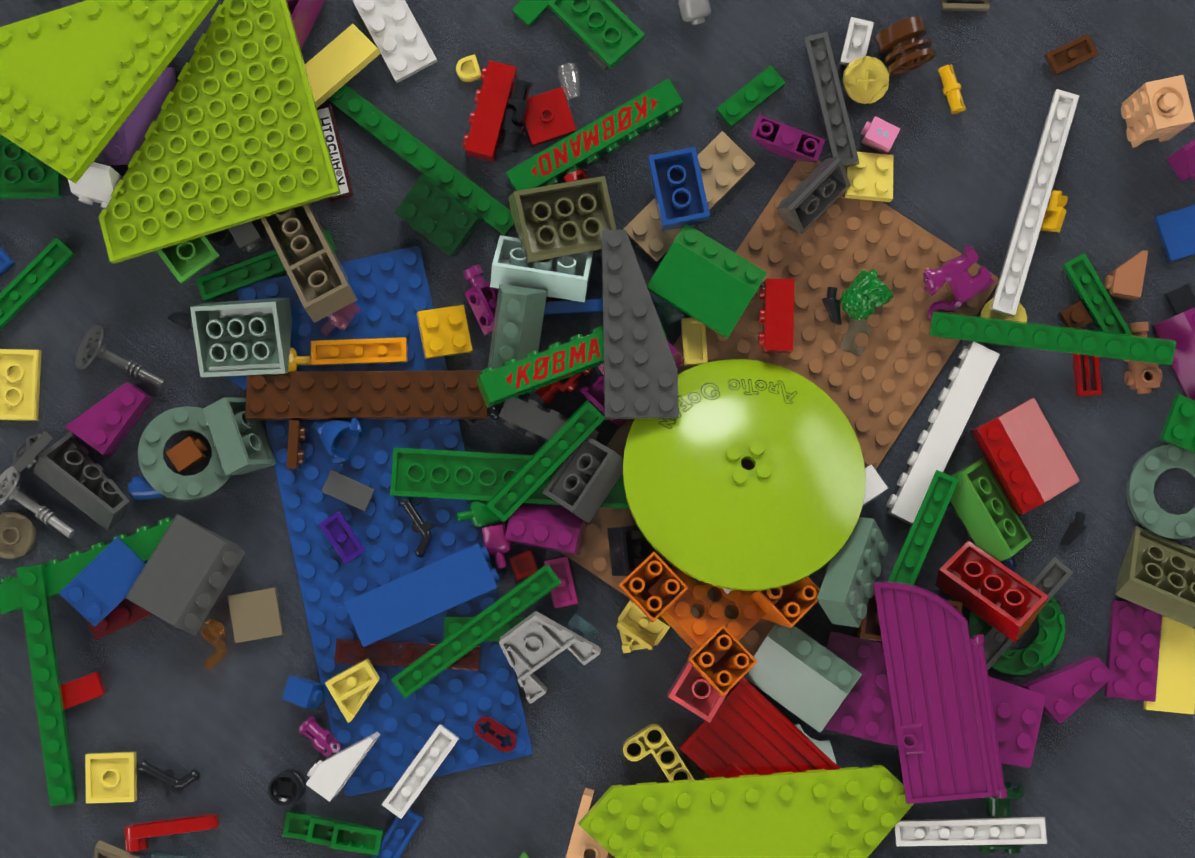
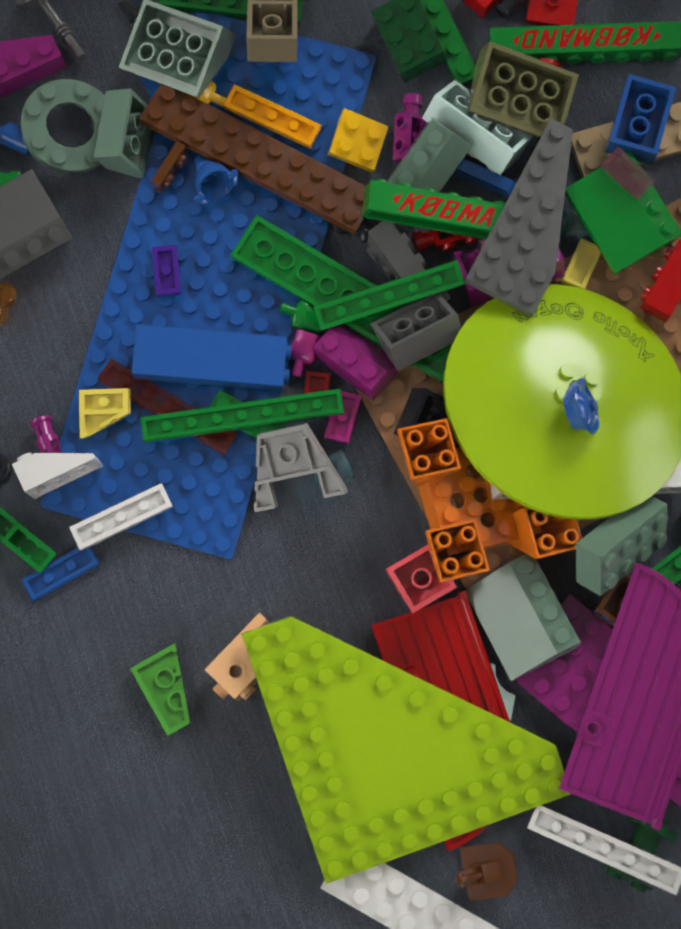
camera: 25 degrees right, 5 degrees down
(187, 454) = (69, 128): dark orange brick -> none
(255, 615) = (50, 301): dark tan tile -> none
(303, 692) = (55, 389): blue brick -> none
(340, 318) = (273, 76): clear pink piece -> none
(348, 490) = (195, 233): dark grey tile -> none
(418, 526) = (241, 297): black piece -> none
(500, 729) = (203, 524): dark red beam -> none
(638, 630) = (394, 496): light yellow slope -> none
(657, 749) = (349, 615): light yellow beam -> none
(693, 247) = (627, 173): none -> tile
(763, 484) = (581, 407): none -> blue piece

